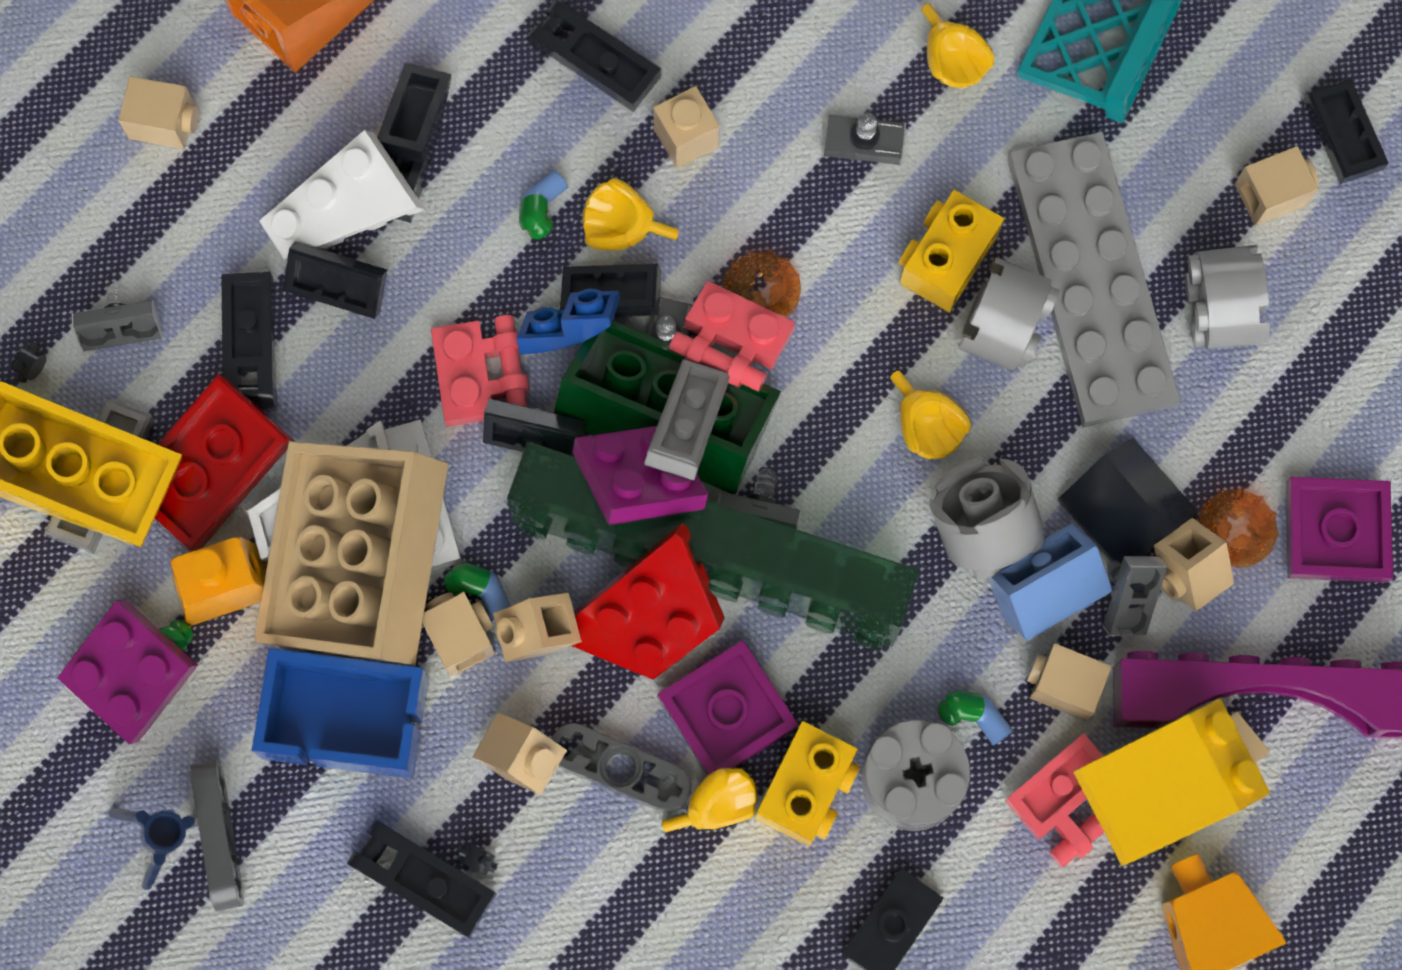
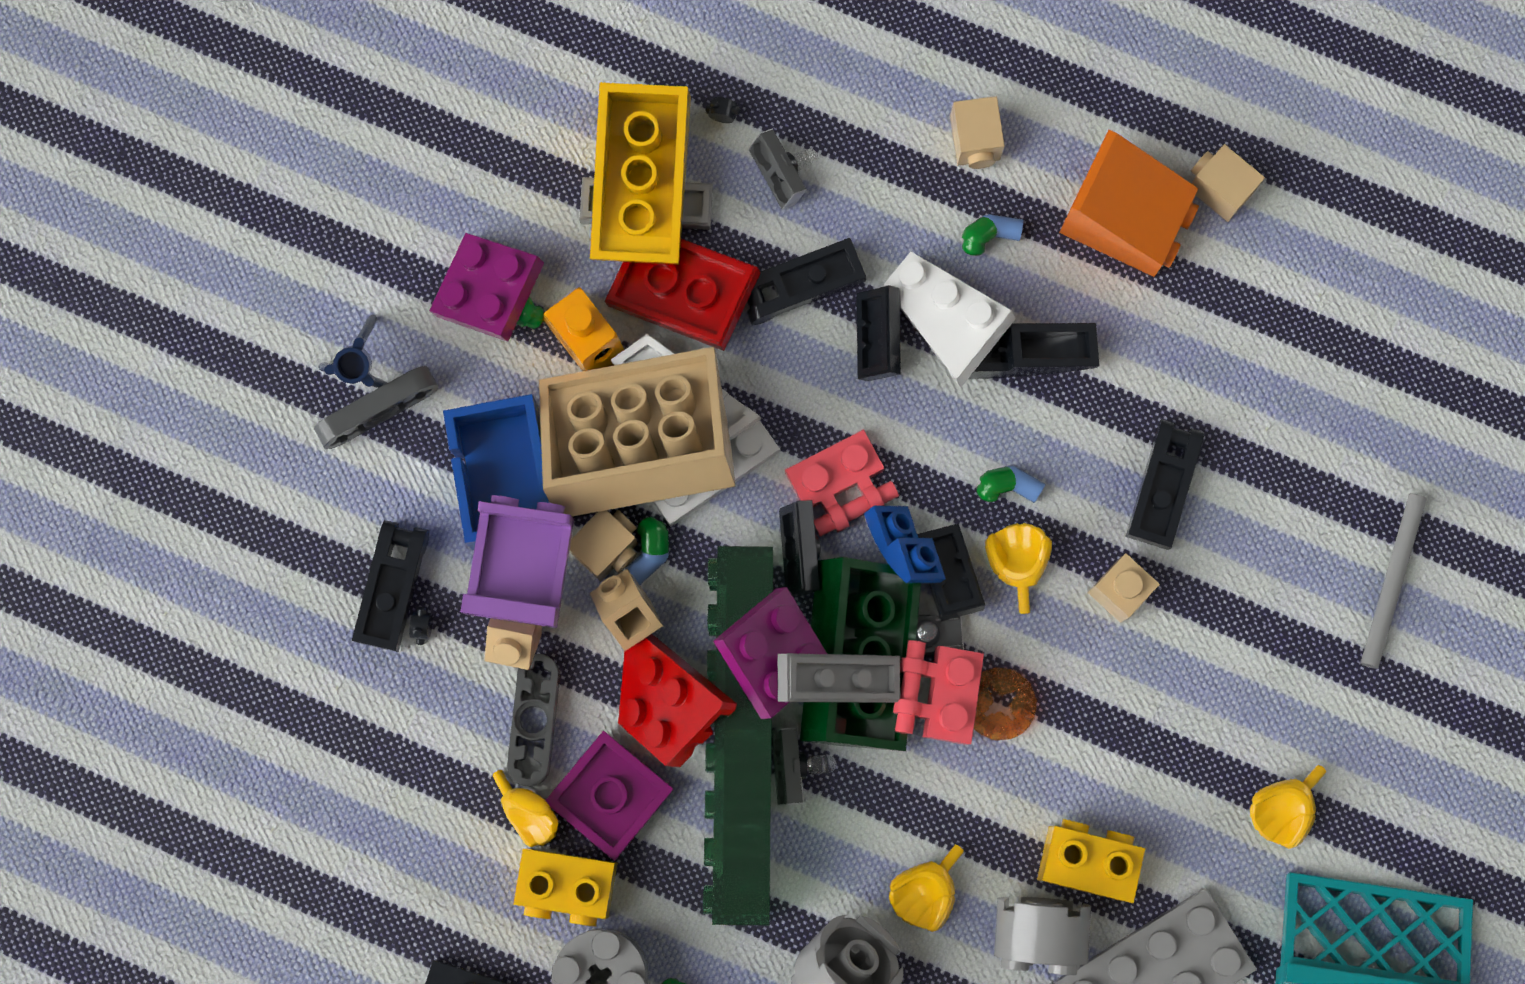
camera: 75 degrees right, 5 degrees up
(264, 136) = (986, 229): none -> arm
(449, 714) = (519, 562): none -> medium lavender panel
(864, 139) = (1173, 751): dark grey piece -> none

